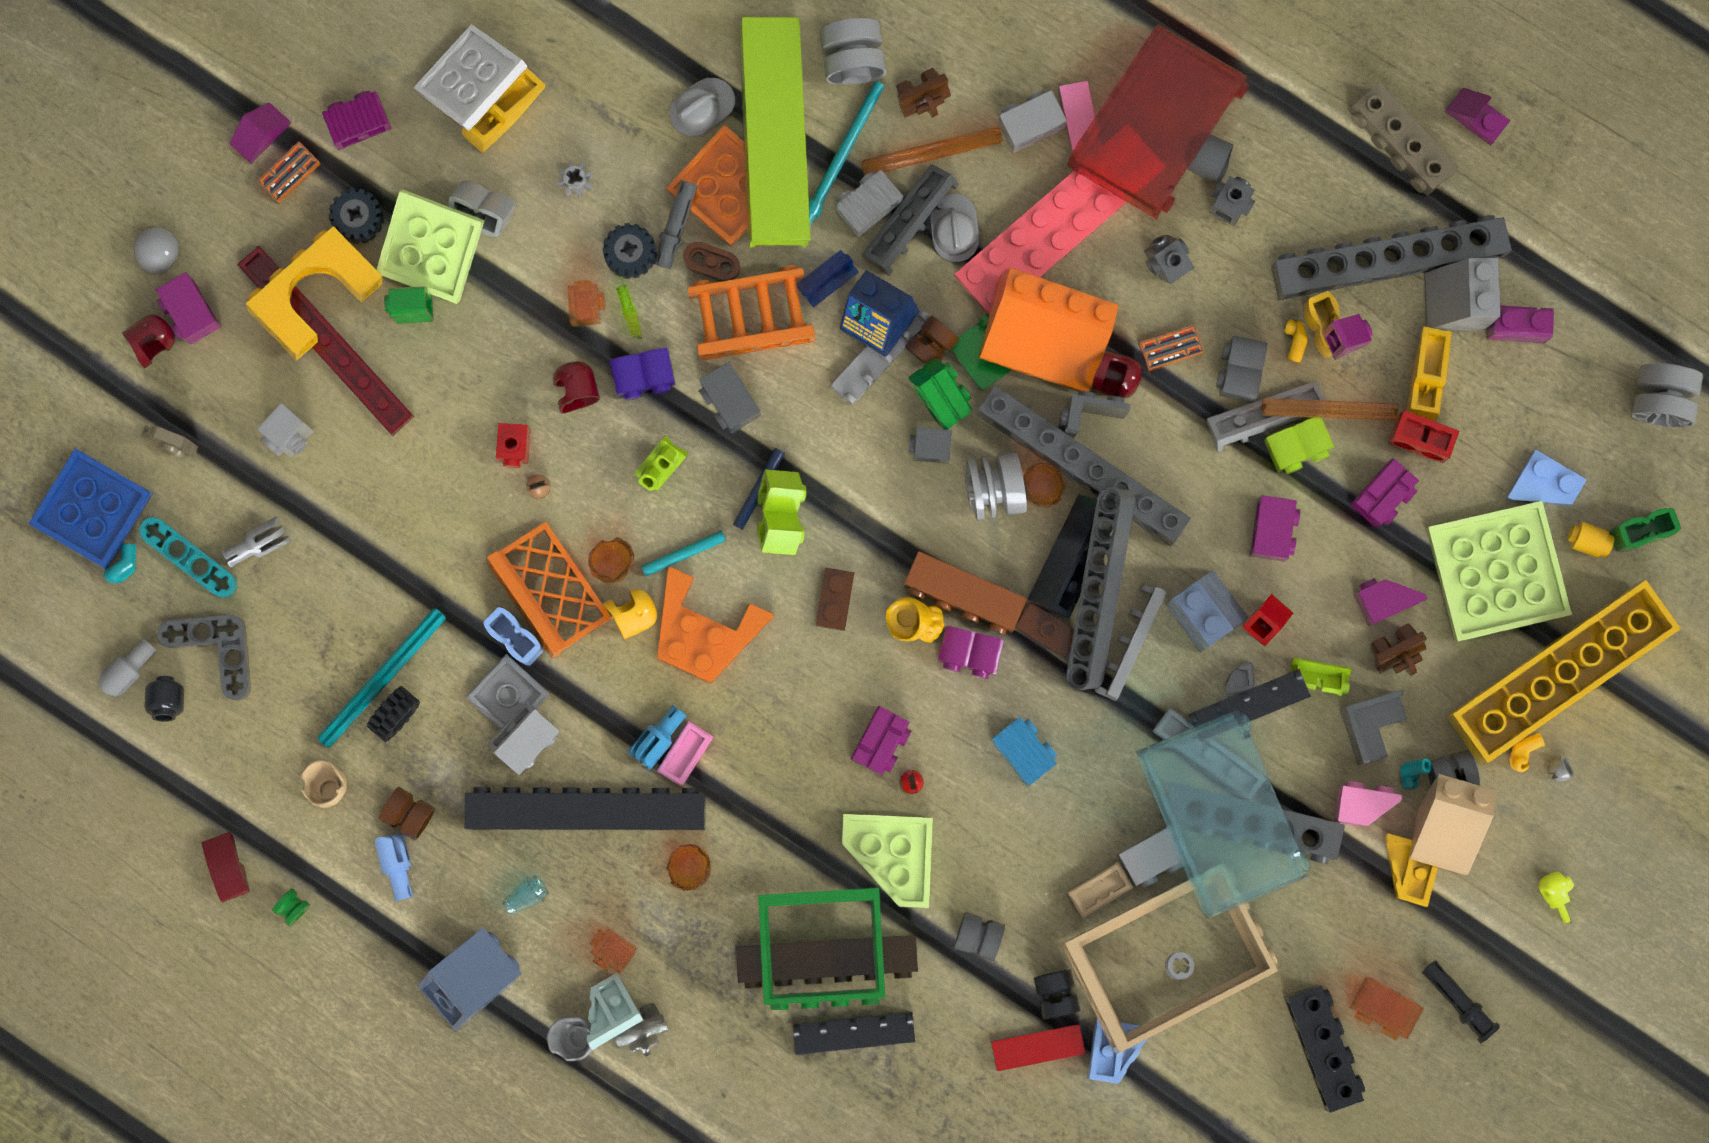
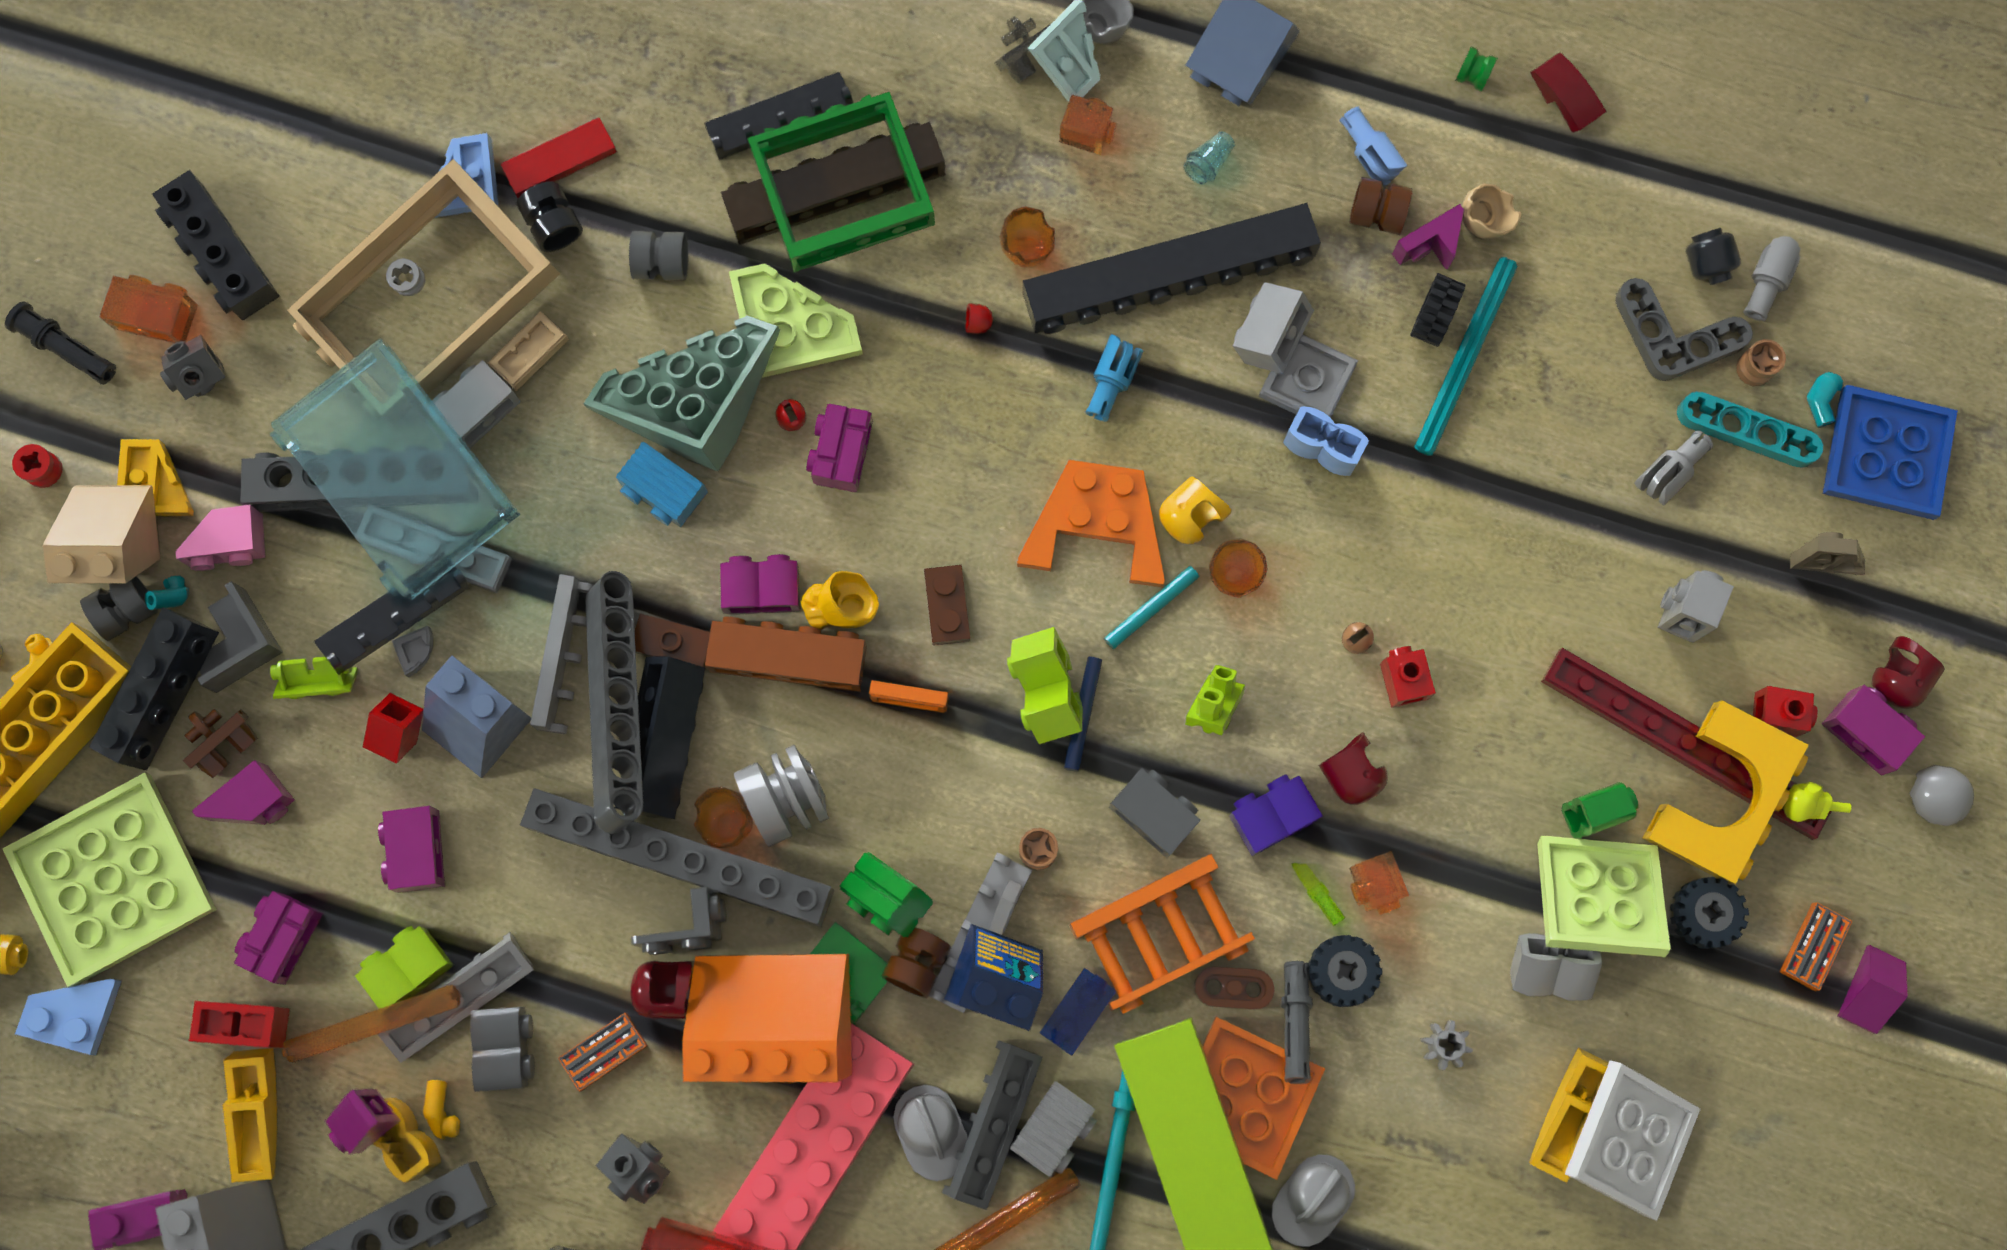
camera: 165 degrees right, 5 degrees down
(155, 602) = (1768, 358): none -> medium nougat wheel
(247, 339) = (1786, 709): none -> red brick
(255, 268) = (1811, 802): none -> neon yellow piece
(356, 119) = (1758, 1041): magenta brick -> none
(367, 778) = (1438, 236): none -> magenta slope
(527, 604) = (1323, 488): orange fence -> none
(685, 754) = (1073, 371): bright pink tile -> none
(746, 815) = (978, 318): none -> red hinge
(821, 393) = (1038, 843): none -> medium nougat wheel
(856, 362) = (1006, 907): none -> light grey tile
(883, 535) = (908, 696): none -> orange tile
(931, 445) = (880, 829): dark grey brick -> none
(982, 816) = (692, 397): none -> sand green slope
(1361, 948) = (191, 368): none -> dark grey brick
(1437, 699) = (154, 690): none -> black brick
(1490, 904) = (44, 473): none -> red wheel

